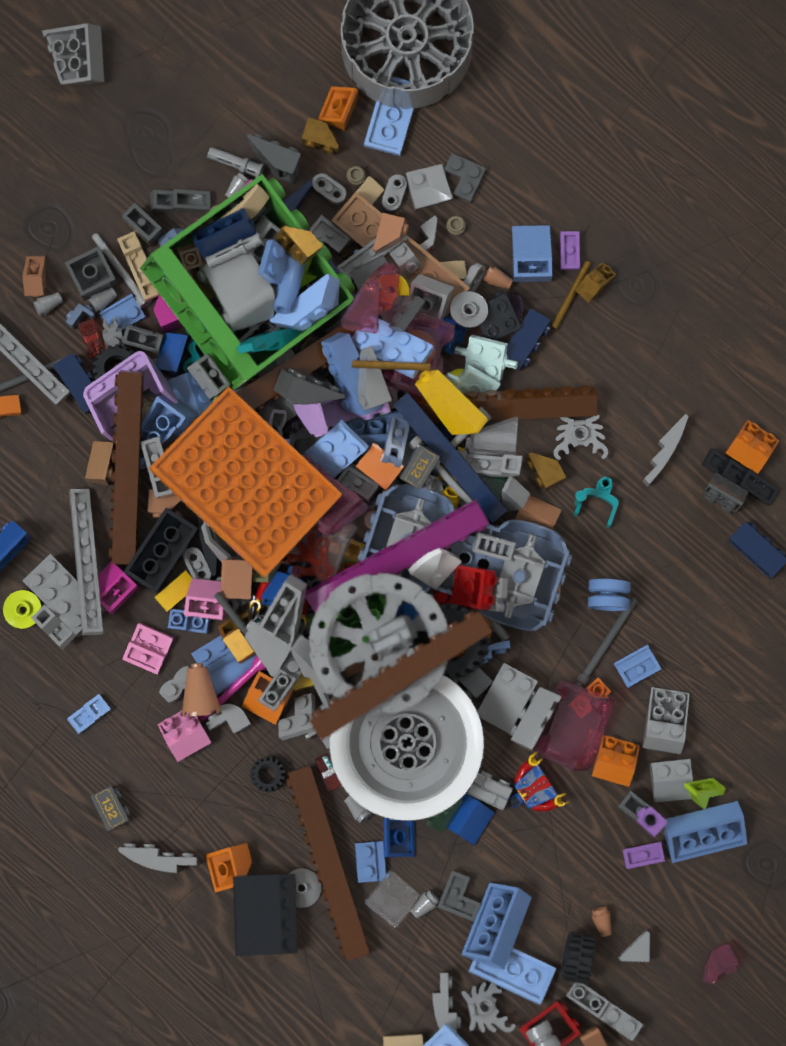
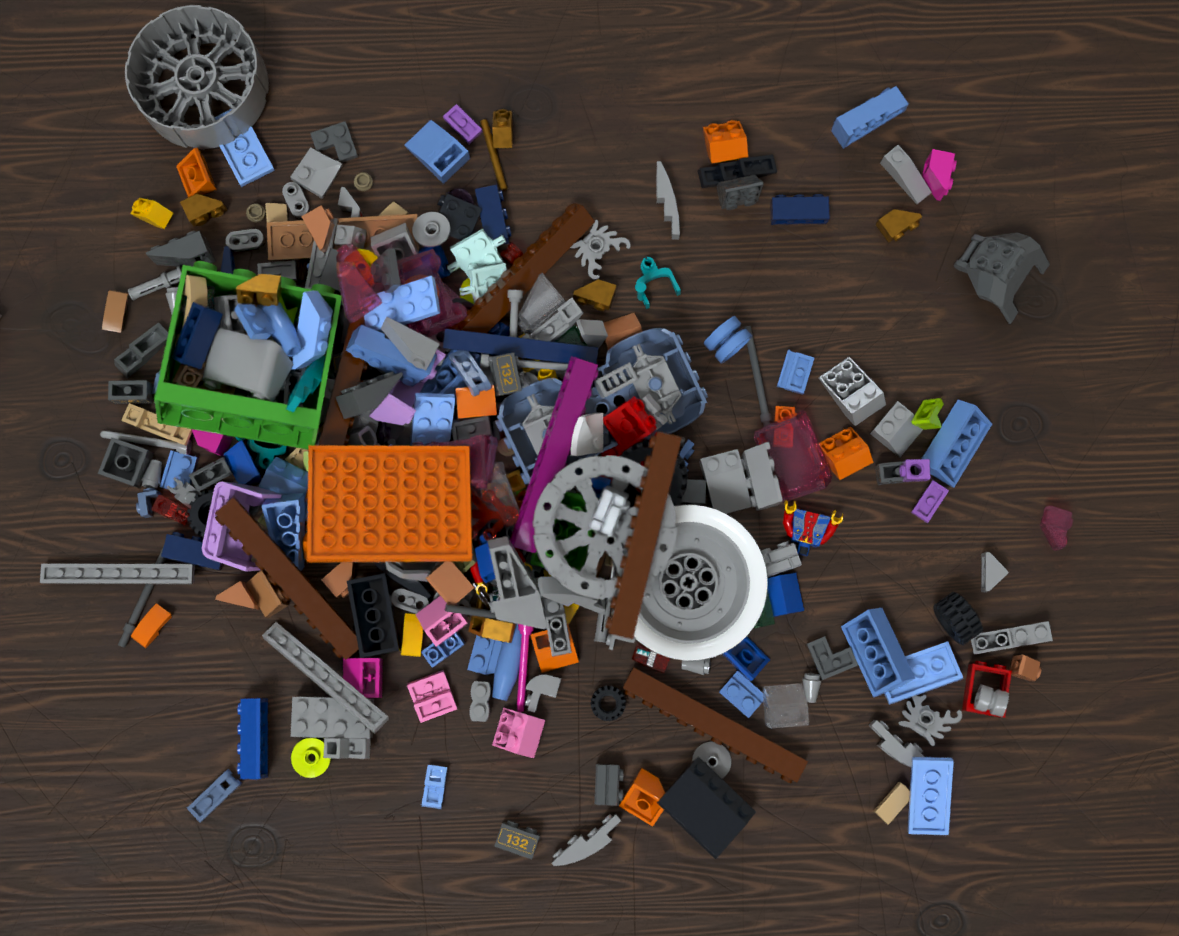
camera: 45 degrees left, 0 degrees up
(34, 276) = (85, 505): nougat slope -> none
(47, 303) = (113, 517): light grey cone -> none
(81, 446) = (238, 595): none -> nougat slope
(152, 451) = (297, 549): light grey slope -> none
(187, 154) = (114, 311): none -> medium nougat slope
(199, 692) = (502, 692): nougat cone -> none
(208, 375) = (286, 454): light grey brick -> none
(212, 831) = (607, 784): none -> dark grey brick
(239, 248) = (216, 341): light grey pin -> none
(280, 105) = (151, 212): none -> yellow slope
(298, 724) = (596, 638): light grey plate -> none
(390, 365) = (415, 317): pearl gold bar -> none
(450, 404) = (484, 307): yellow slope -> none
(475, 276) = (412, 203): light grey plate -> none
(497, 278) = (429, 191): nougat cone -> none
(513, 381) = (511, 253): none -> clear red wheel
(602, 920) = (946, 575): nougat cone -> none

